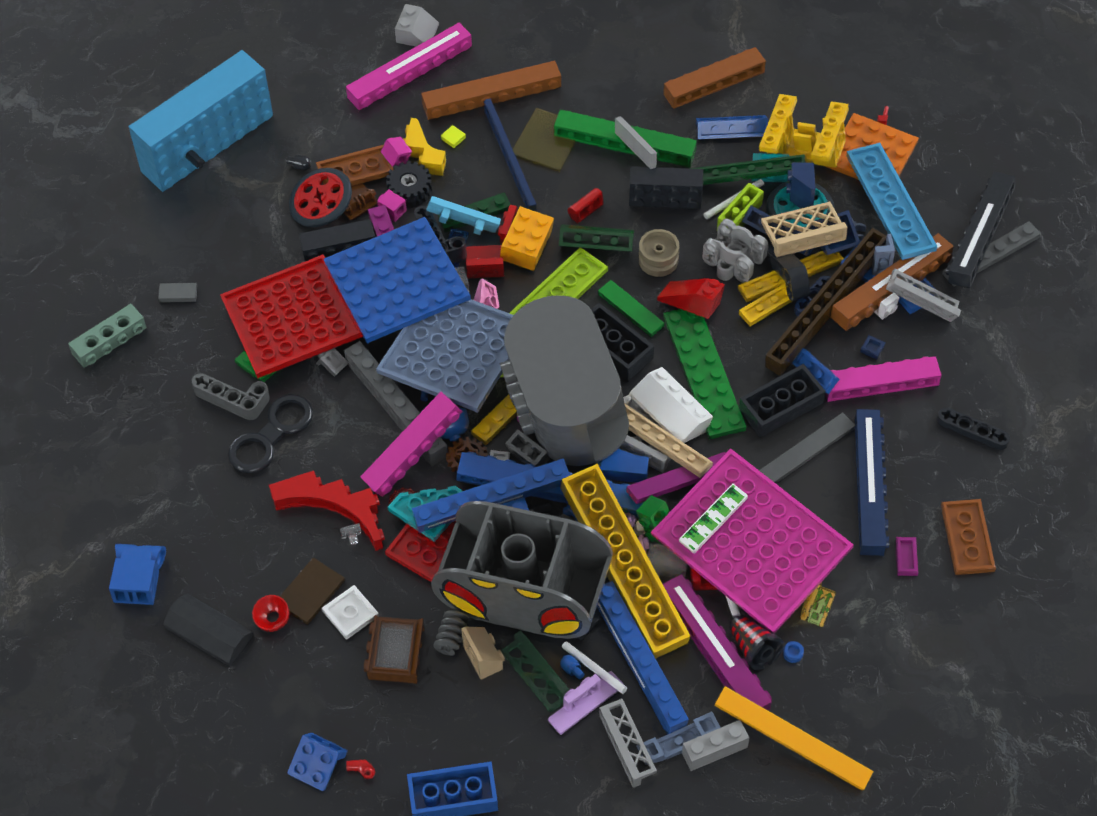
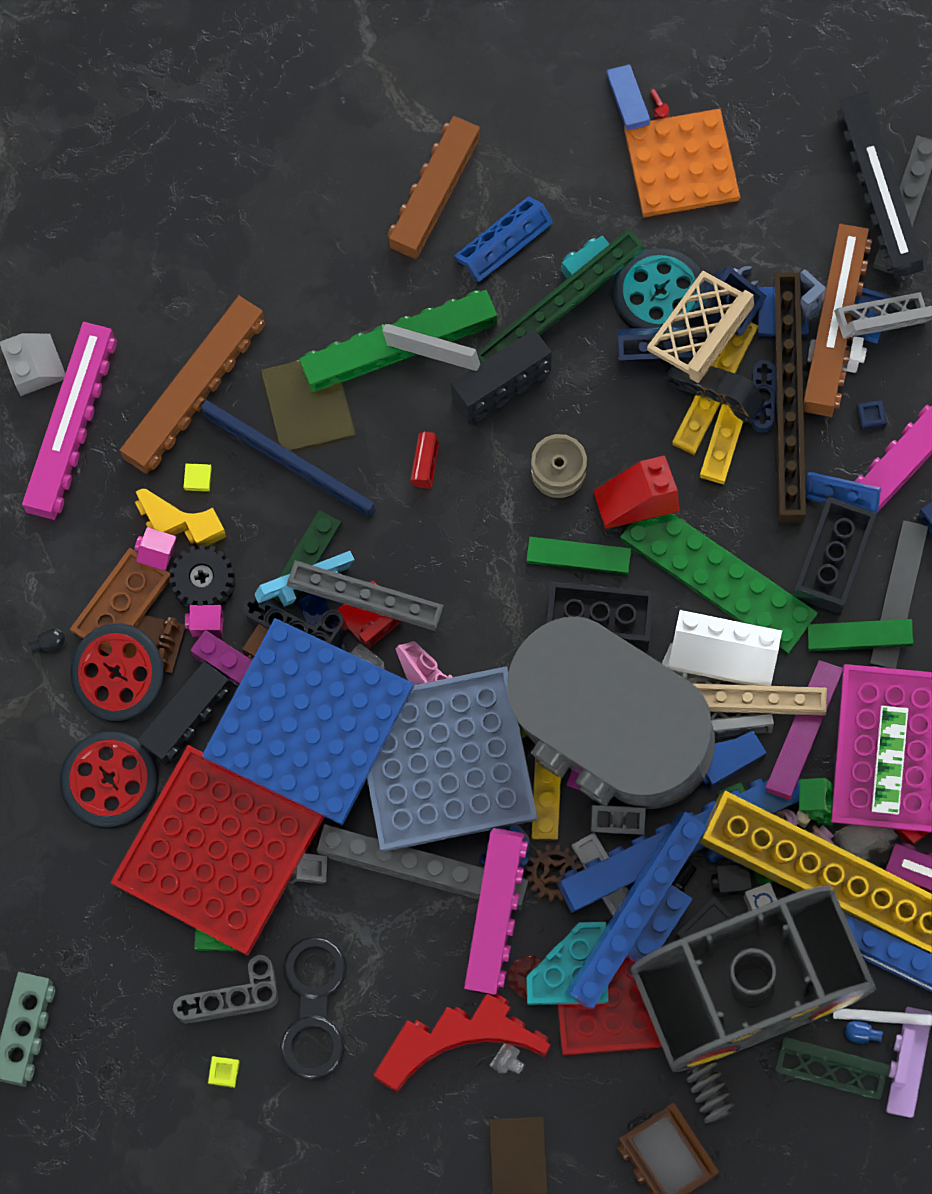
camera: 35 degrees left, 15 degrees up
(177, 292) = (52, 912): dark grey tile -> none
(192, 432) = (223, 1072): none -> neon yellow tile
(270, 229) = (129, 805): none -> wedge
(350, 612) = (583, 1151): white plate -> none
(481, 651) = (762, 1089): tan slope -> none
(486, 241) = (365, 595): none -> dark grey tile
(508, 218) = (362, 559): red plate -> none
(526, 238) = (398, 552): light orange brick -> none
(569, 279) = (484, 596): lime plate -> none
(596, 237) = (475, 496): dark green brick -> none
(725, 204) = (578, 336): white bar -> none
(735, 251) = (660, 385): light grey piece -> none
(739, 206) = (604, 346): lime brick -> none
(761, 454) = (860, 635): none -> green tile
(801, 185) = (655, 270): dark blue slope -> none
(818, 147) = (609, 205): yellow piece -> none
(867, 99) = (628, 97): none -> tile
(891, 201) = (761, 218): dark azure plate -> none

